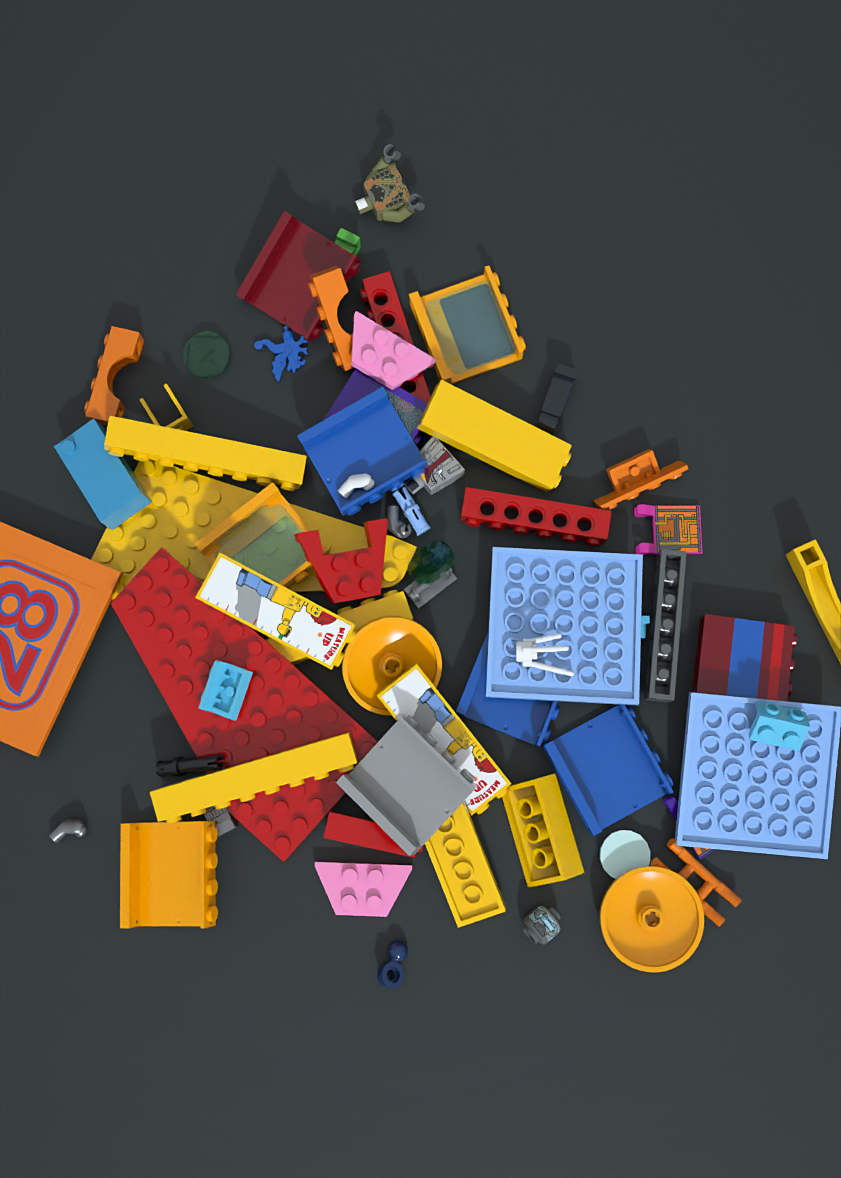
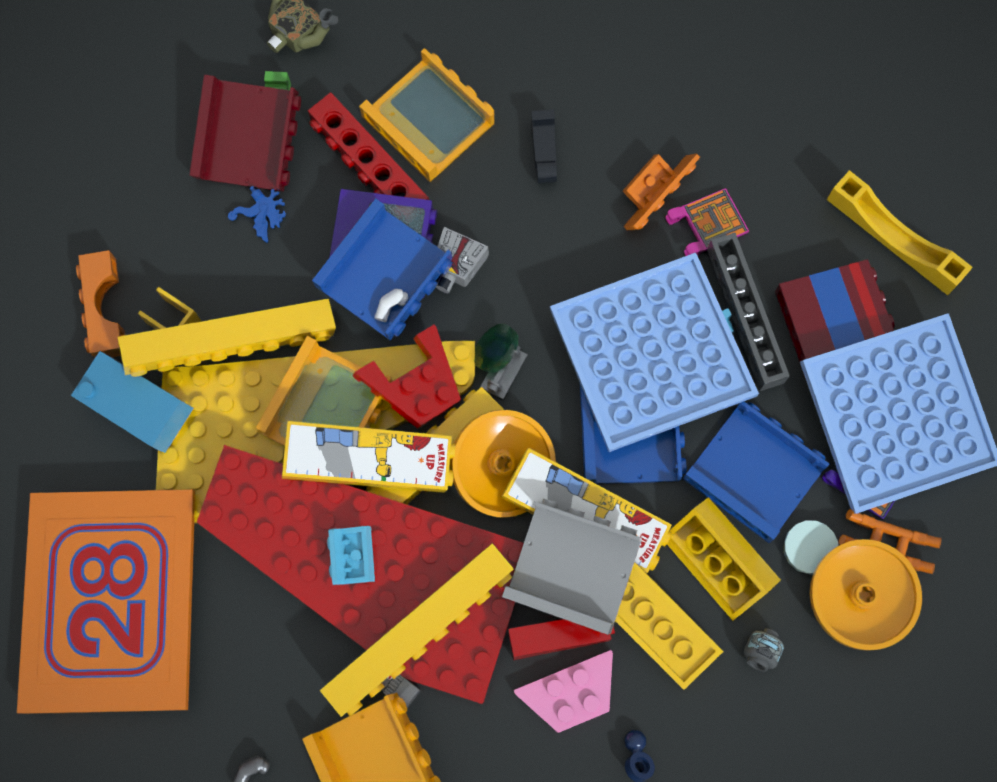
camera: 25 degrees left, 5 degrees down
(181, 766) = (337, 654): black pin -> none
(206, 354) = (184, 246): clear green tile -> none
(329, 289) = (282, 130): orange arch -> none
(385, 354) = (362, 169): bright pink wing -> none
(395, 525) = (445, 330): flat silver arm -> none
(411, 511) = (454, 309): light blue pin -> none
(494, 436) = (503, 203): yellow brick -> none
(524, 506) = (634, 240): red brick -> none
(528, 650) = (630, 386): white plant -> none
(779, 726) = (900, 355): medium azure bracket -> none

